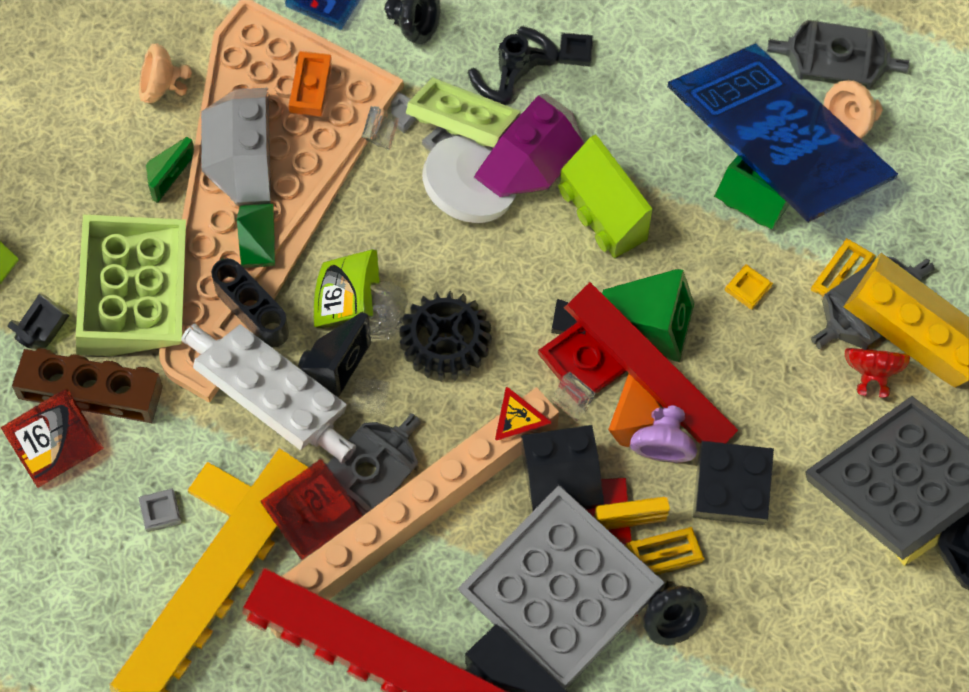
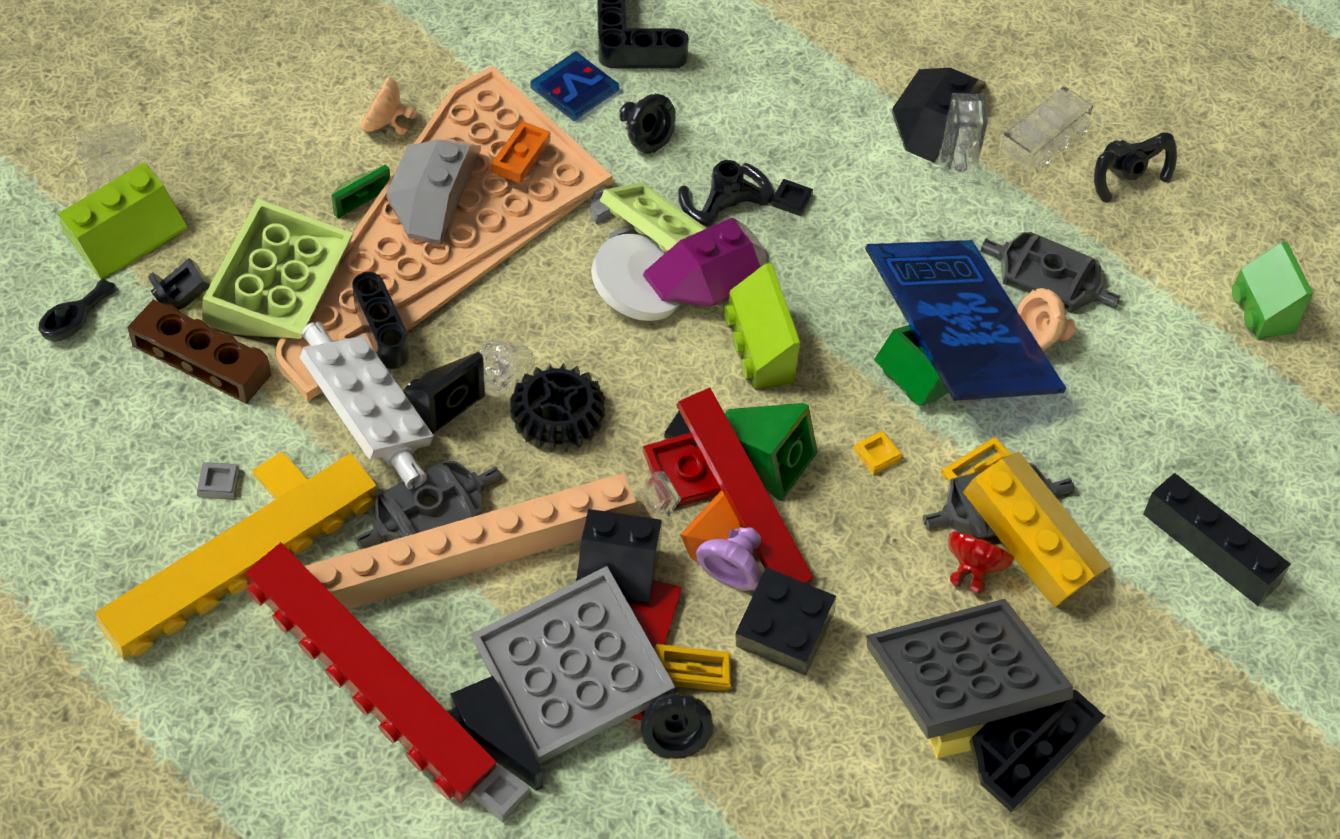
camera: 15 degrees right, 10 degrees down
(52, 438) = (144, 384): slope -> none
(256, 235) = (412, 266): green slope -> none
(311, 509) = (357, 514): clear red slope -> none
(345, 288) = (479, 332): lime slope -> none
(370, 397) = (463, 441): clear tile -> none
(380, 127) = (572, 209): clear tile -> none
(517, 416) = (592, 491): sticker -> none
(633, 513) = (672, 617): yellow tile -> none

